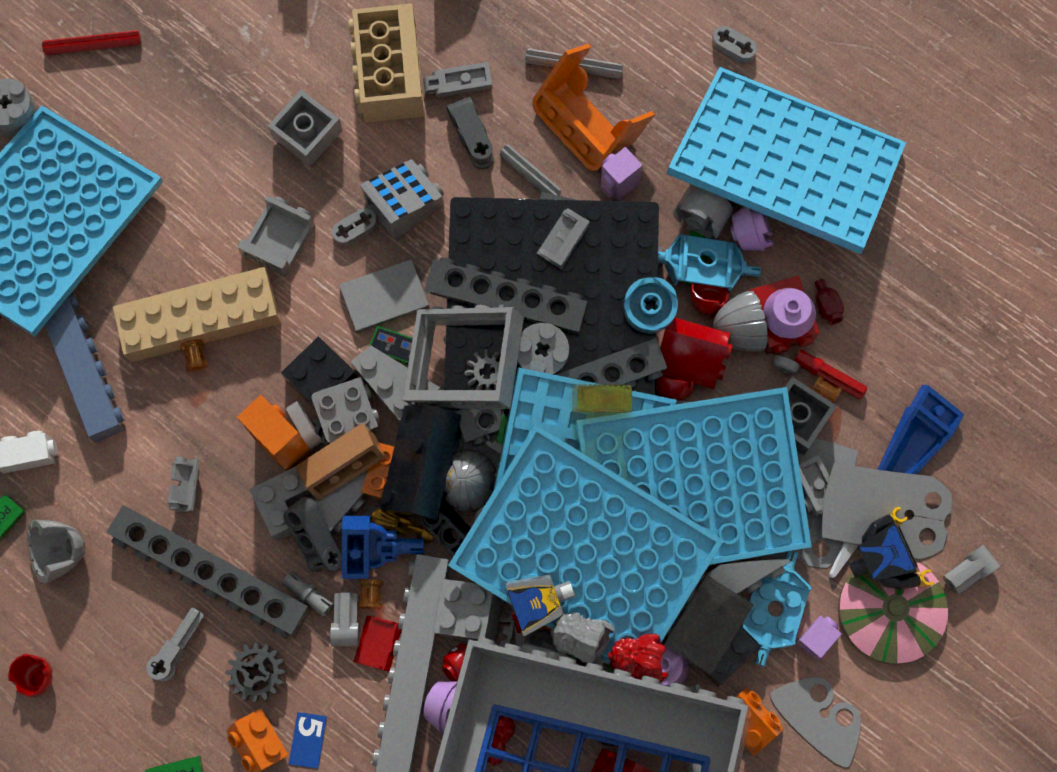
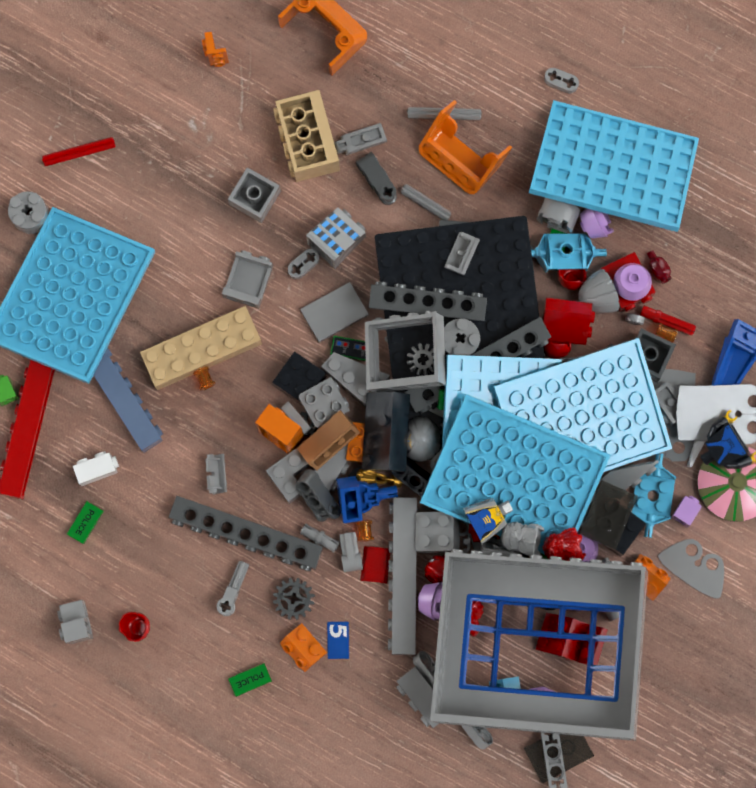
camera: 10 degrees left, 5 degrees up
(53, 548) = (132, 535): light grey hair -> none
(601, 398) = (509, 367): clear yellow brick -> none
(620, 174) = (493, 195): lavender brick -> none
(648, 290) = (543, 291): medium azure brick -> none

